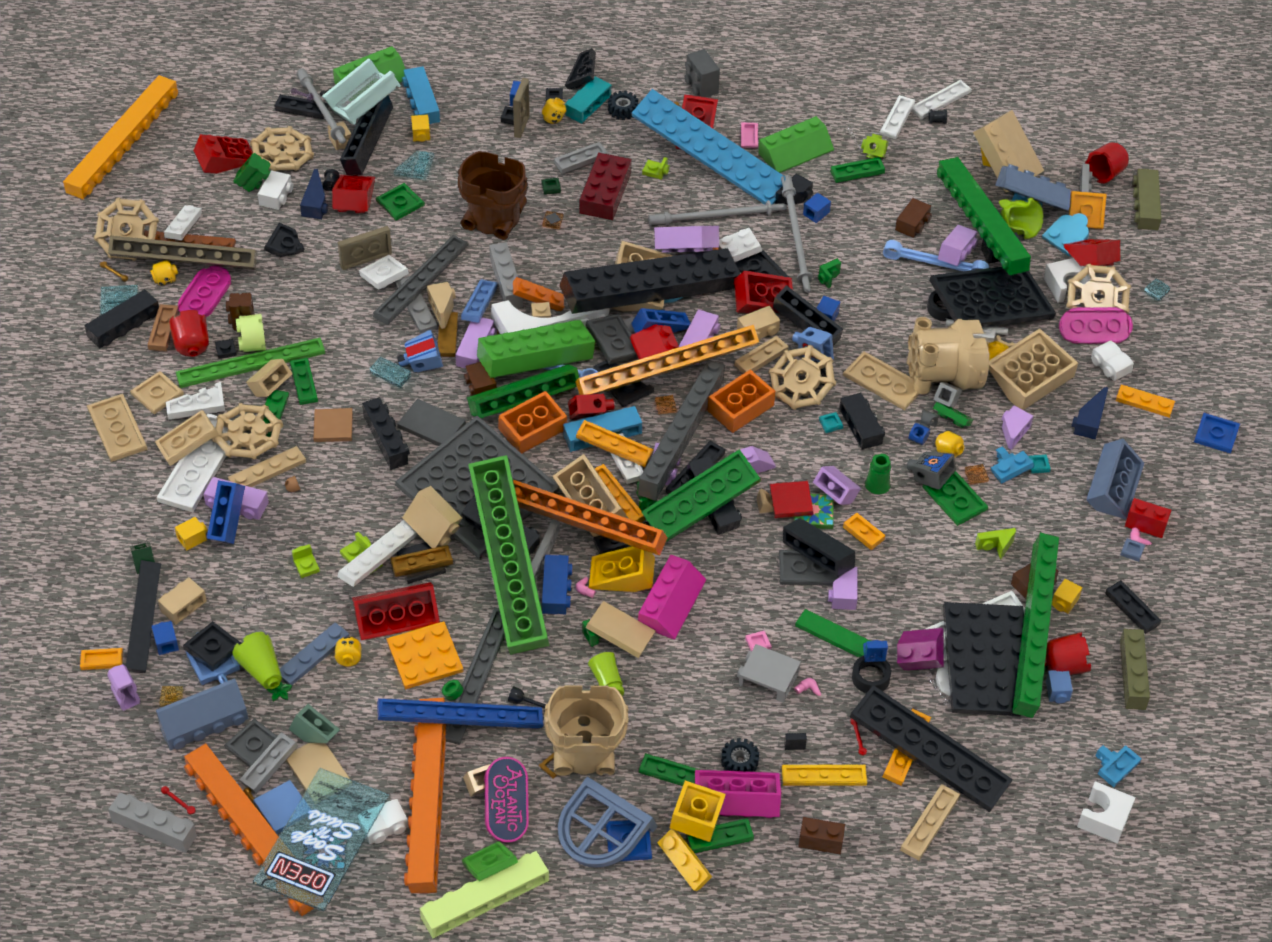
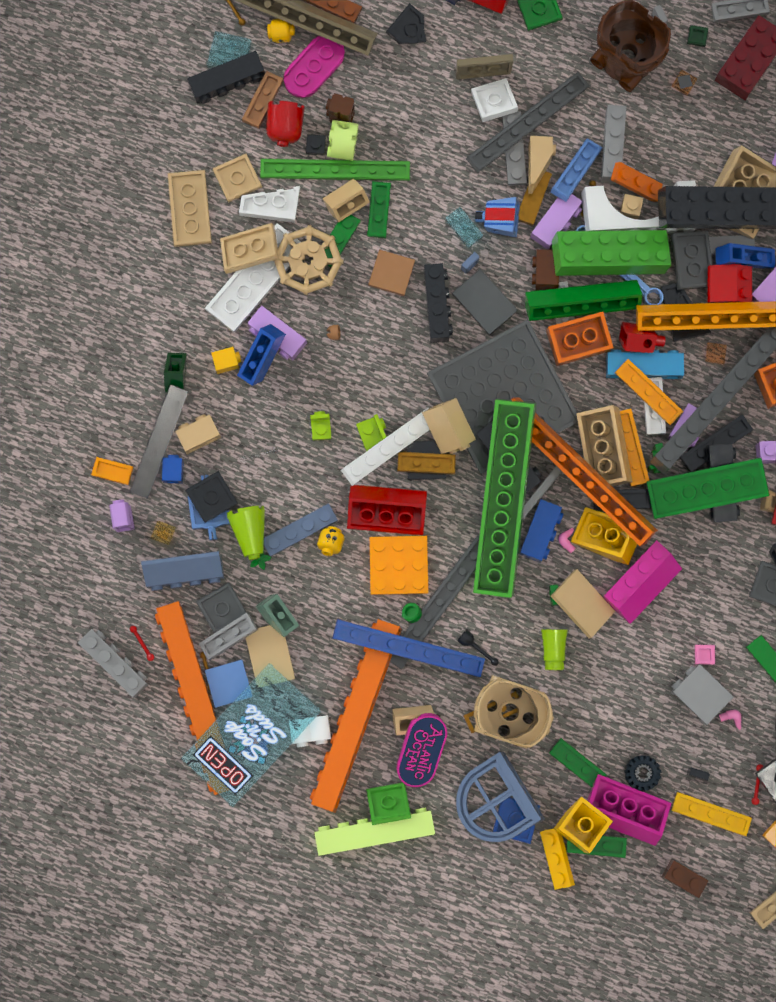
camera: 20 degrees right, 30 degrees up
(269, 468) = (315, 305): tan plate -> none
(406, 395) = (470, 263): none -> sand blue tile

